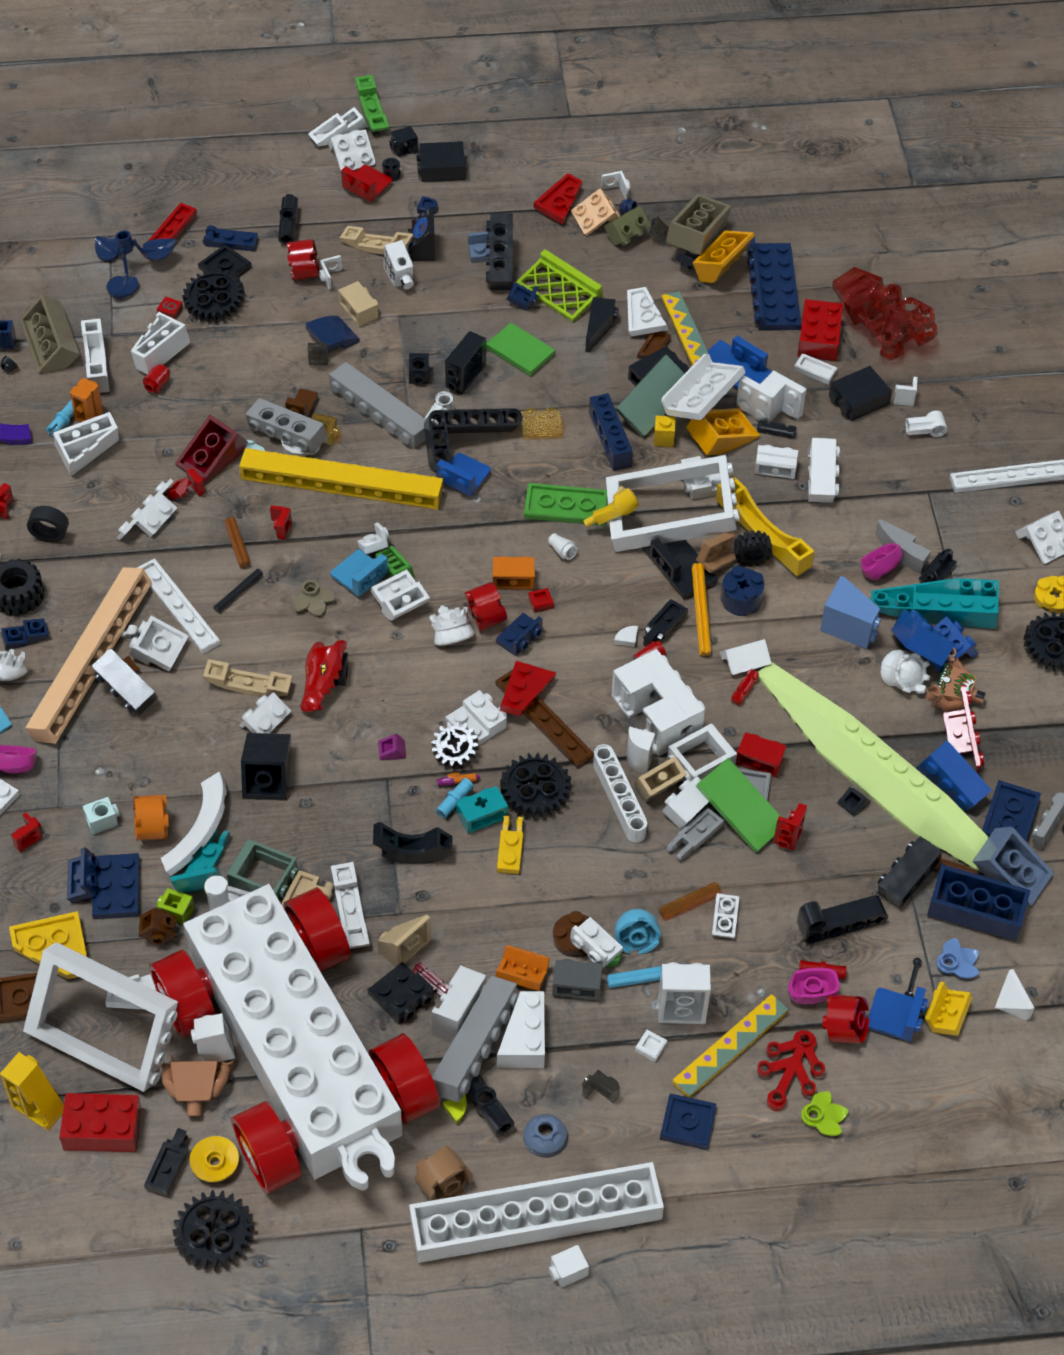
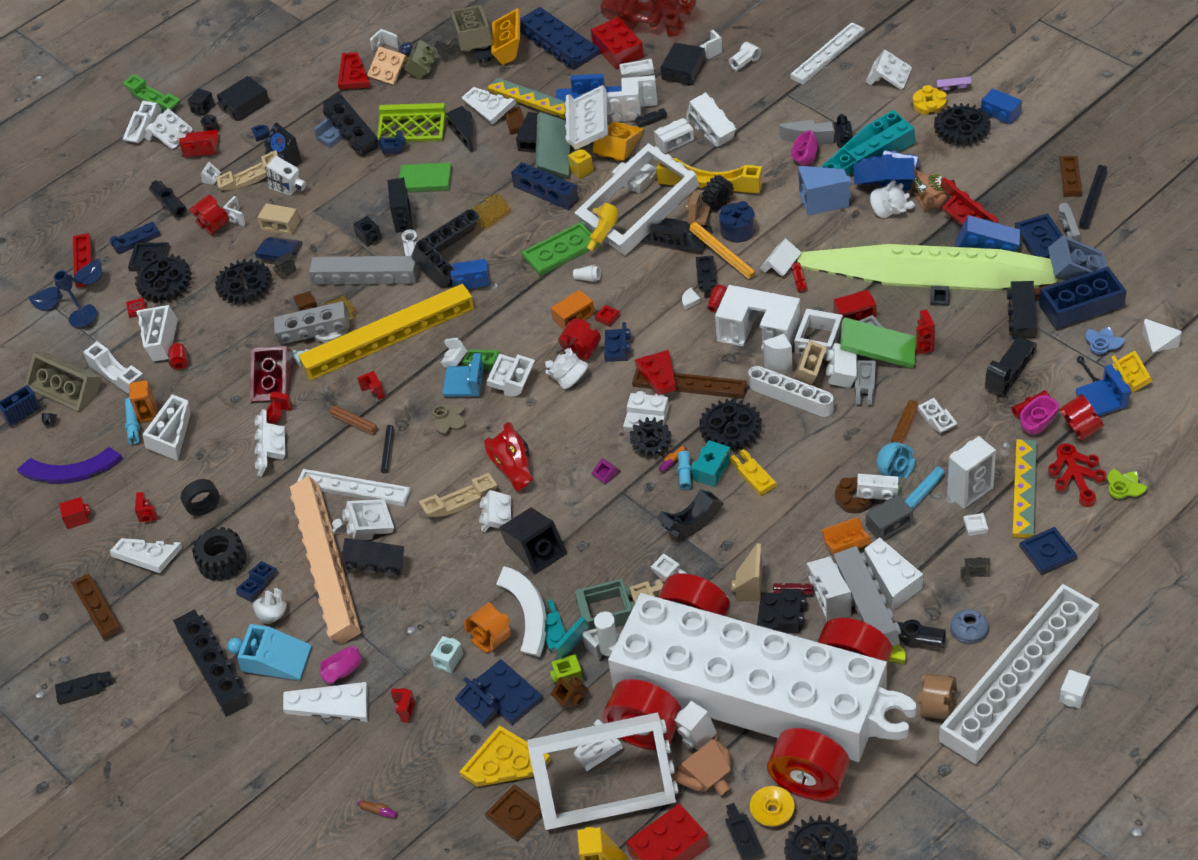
camera: 30 degrees left, 5 degrees down
(273, 344) = (230, 285): none -> black gear
(346, 218) = (209, 174): none -> white slope

